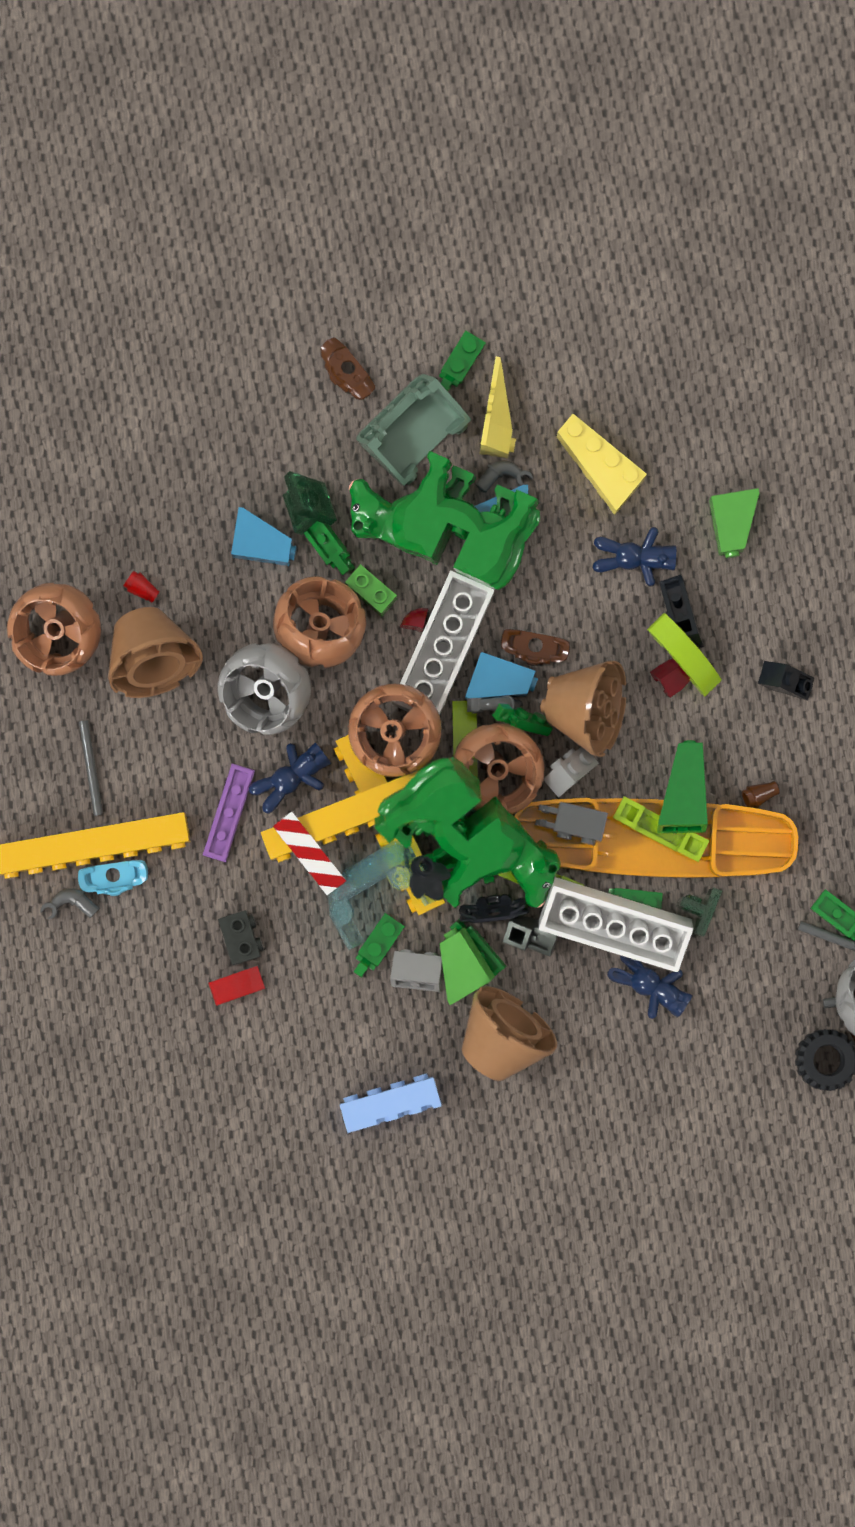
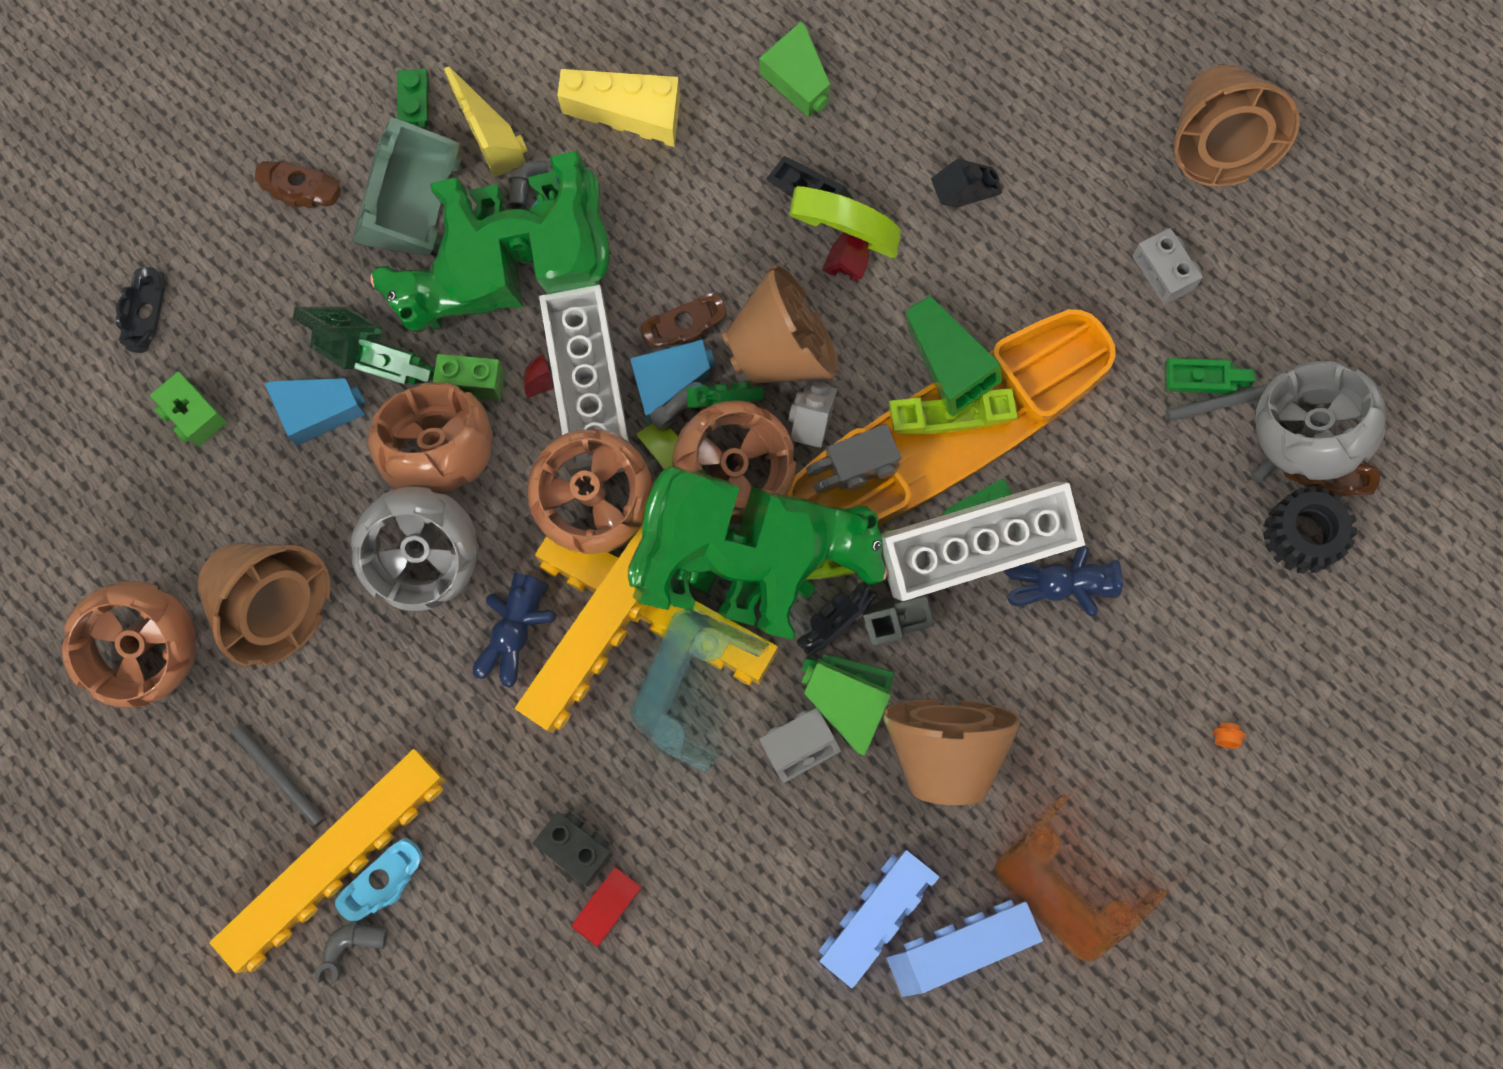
camera: 30 degrees left, 10 degrees down
(140, 586) = (208, 539): red cone -> none
(185, 499) = (179, 395): none -> bright green brick
(201, 378) = (146, 288): none -> black piece
(228, 813) = (469, 718): medium lavender tile -> none
(309, 853) = (586, 693): sticker -> none
(378, 944) = (735, 747): green hinge -> none
(427, 881) = (739, 623): black plate -> none
(428, 1156) = (964, 949): none -> light blue wedge
(500, 1166) = (1056, 903): none -> clear orange windscreen
(632, 555) = (720, 168): dark blue animal -> none
(680, 1146) = (1229, 736): none -> orange plate
(704, 911) = (1058, 461): clear green bracket -> none
(758, 794) = (1025, 310): reddish brown cone -> none

